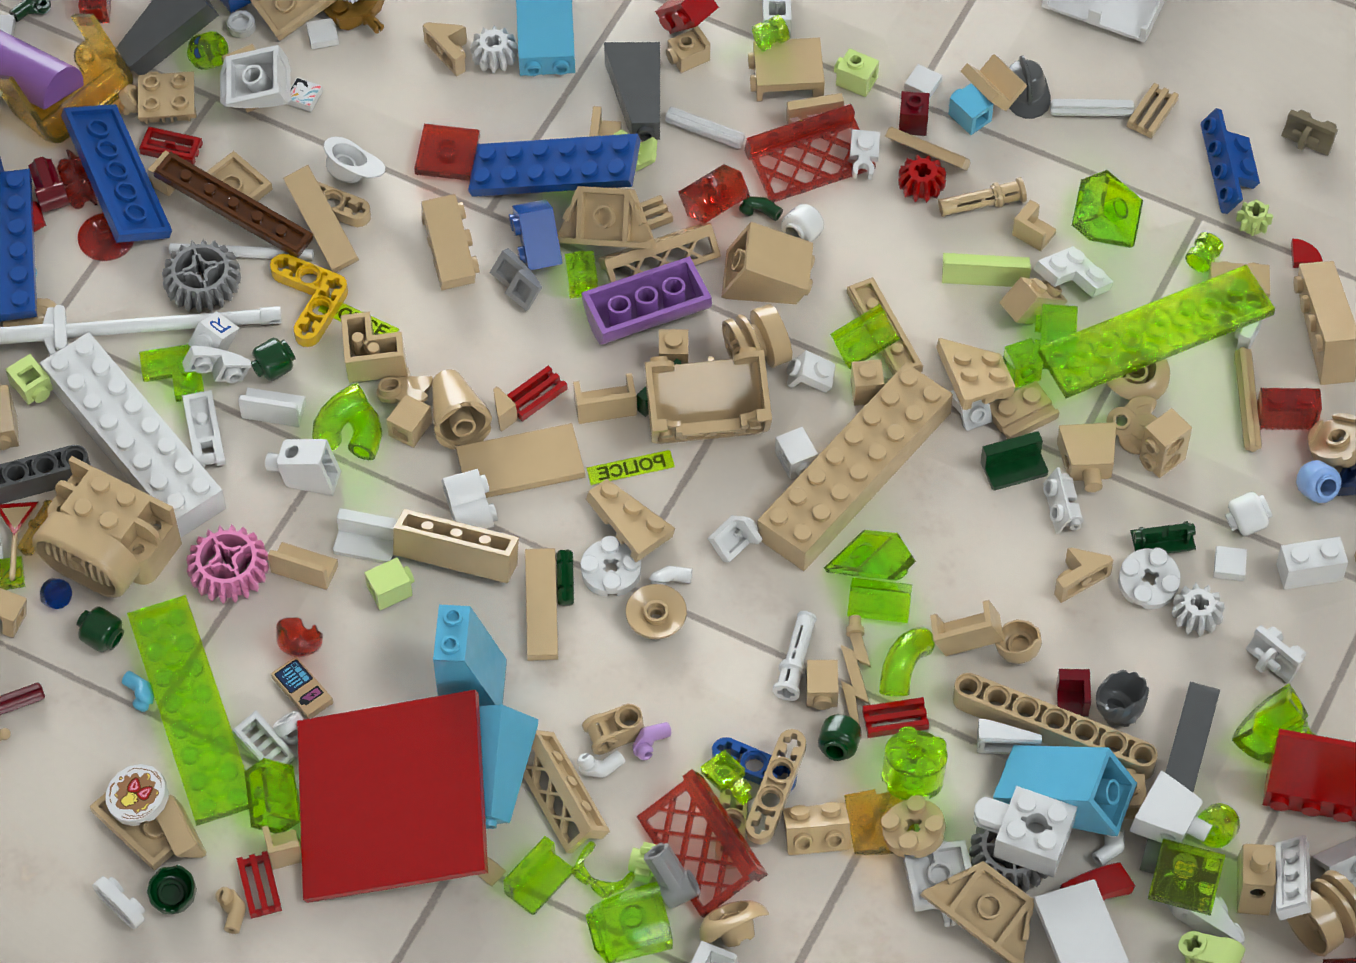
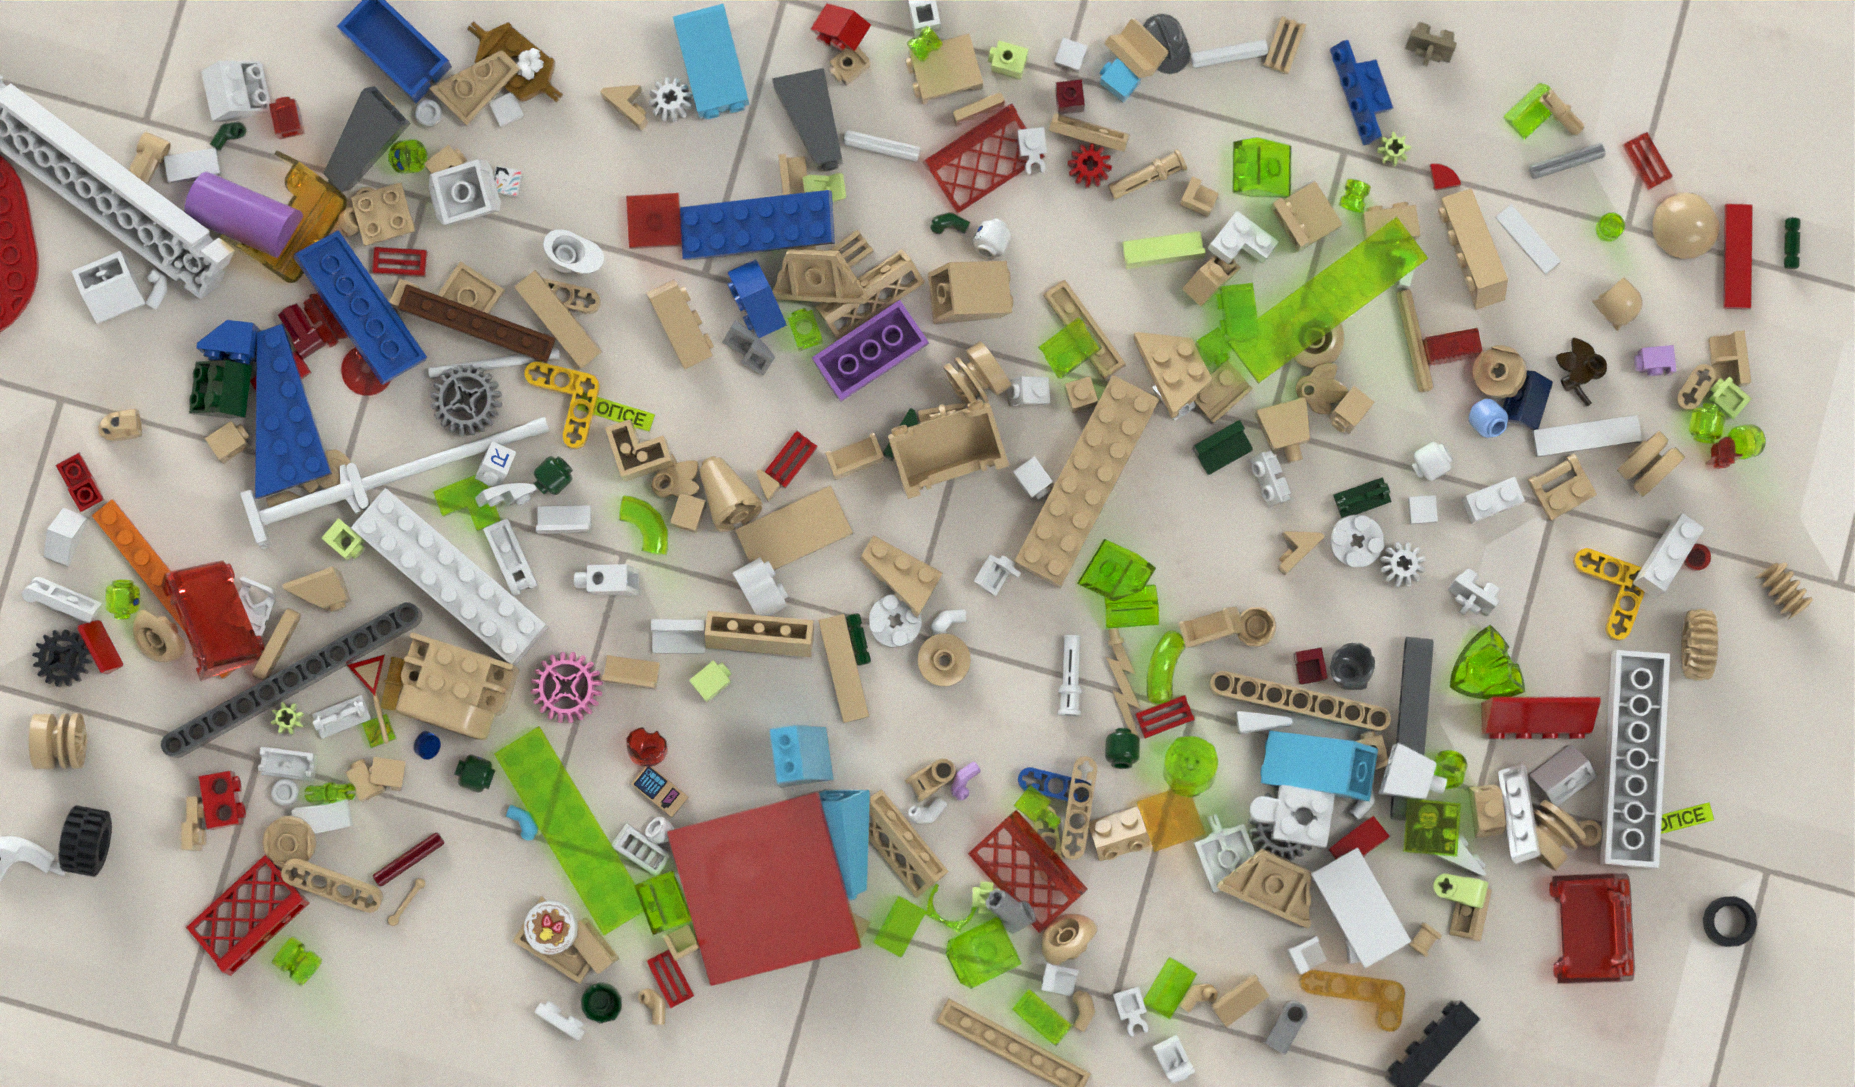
camera: 10 degrees left, 25 degrees up
(337, 413) = (627, 526): clear neon green cylinder -> none
(630, 467) = (889, 516): clear neon green sticker -> none
(674, 344) = (904, 396): tan brick -> none
(714, 193) = (906, 223): clear red brick -> none
(822, 684) = (1098, 701): tan brick -> none
(909, 812) = (1185, 822): tan plate -> none
(1146, 262) = (1306, 216): none -> tan bracket

